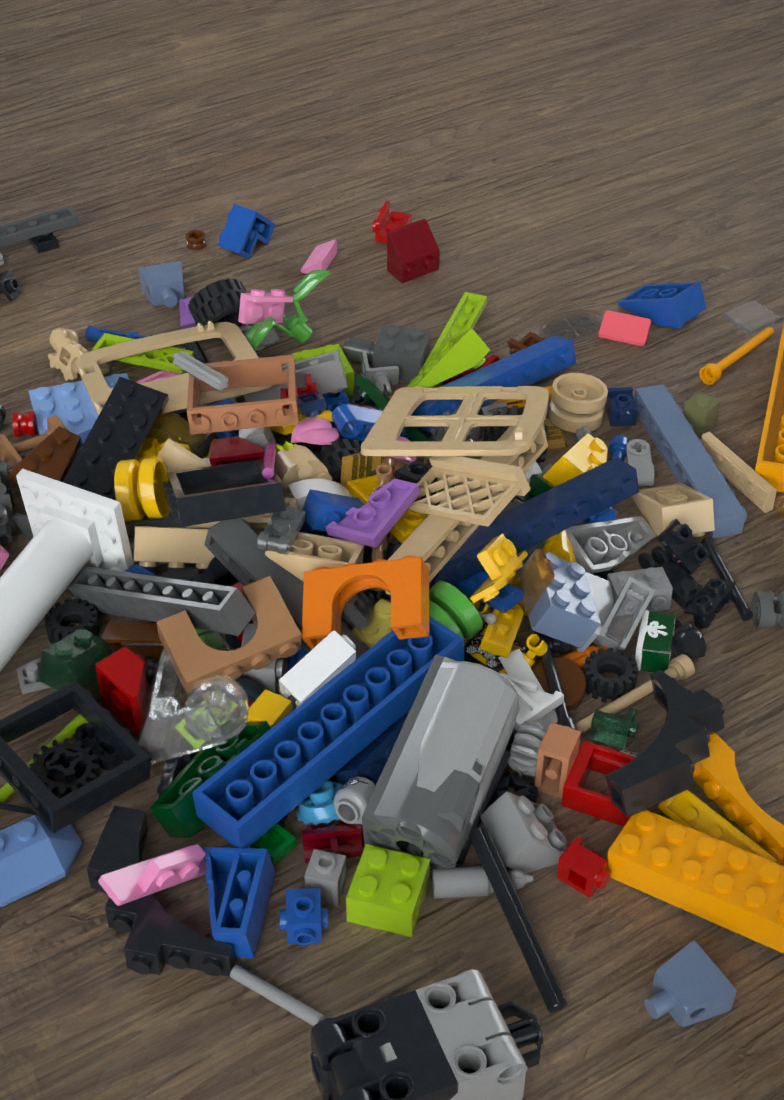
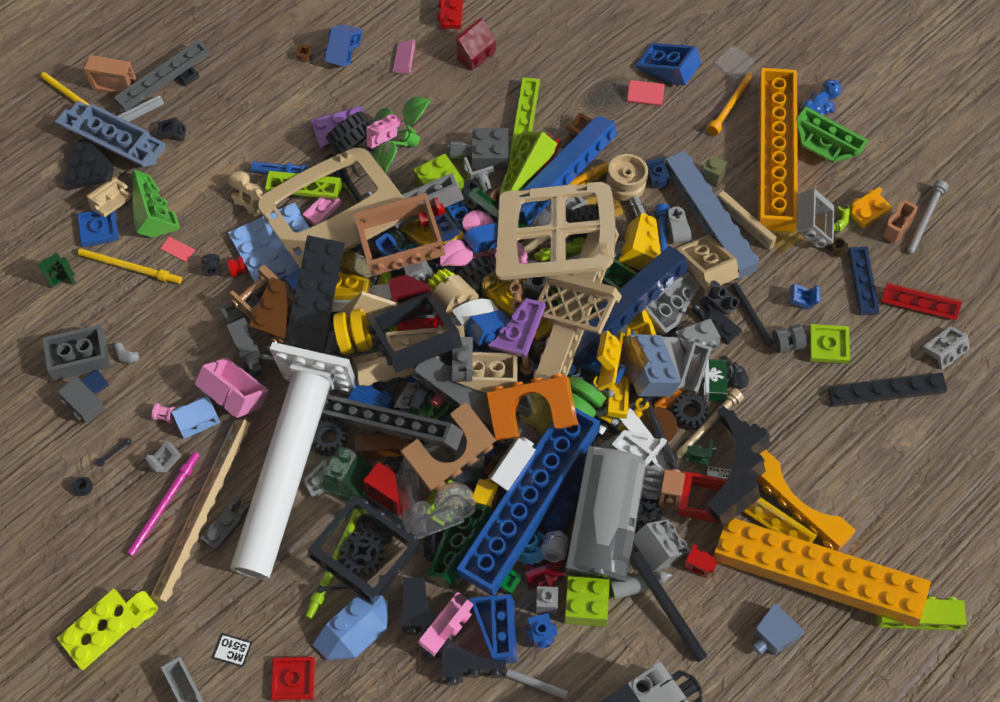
camera: 10 degrees left, 20 degrees up
(162, 283) = (294, 107): sand blue torso -> none
(200, 370) = (365, 222): light grey axle -> none
(269, 460) = (438, 300): magenta bar -> none
(710, 601) = (745, 339): black hinge -> none

